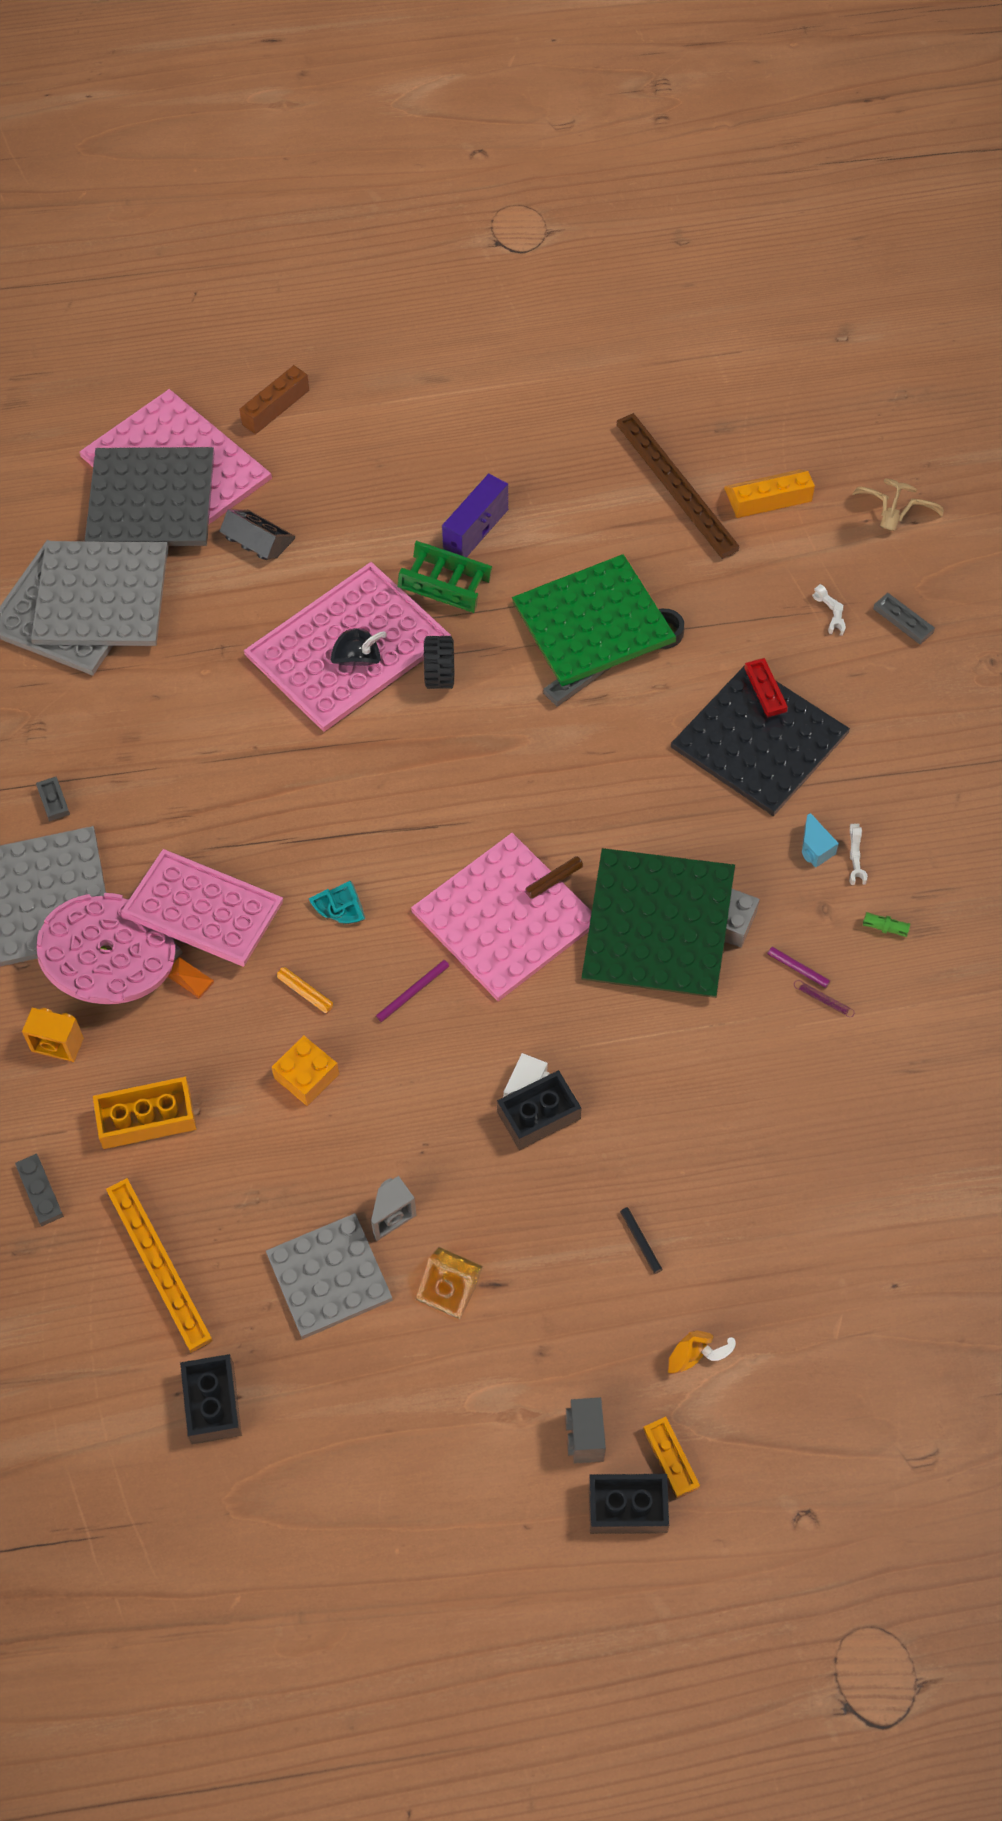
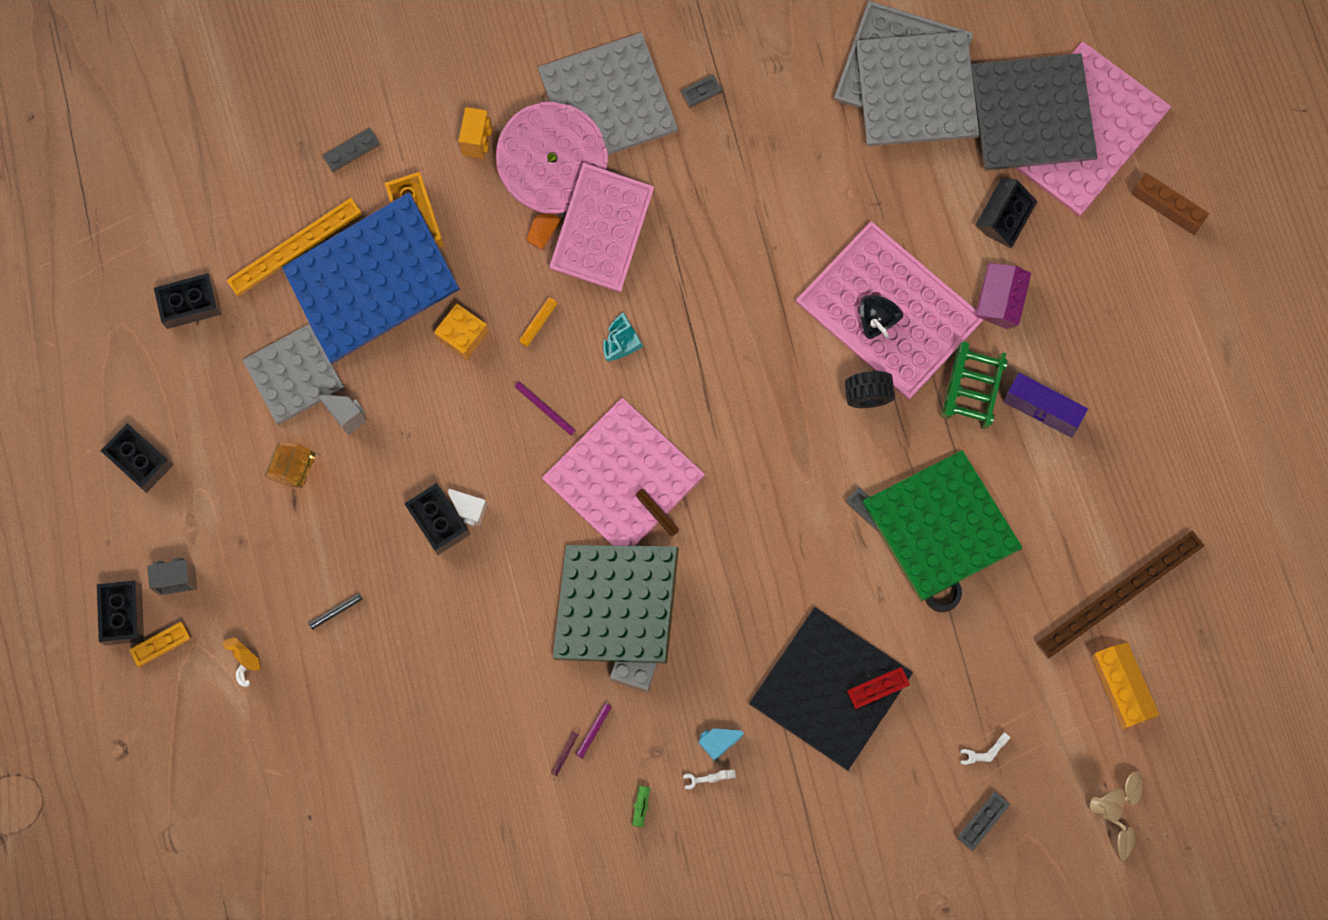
camera: 90 degrees right, 15 degrees up
(220, 1167) = (370, 278): none -> blue plate
(350, 539) = (1003, 295): none -> magenta slope
(419, 1474) = (136, 458): none -> black brick

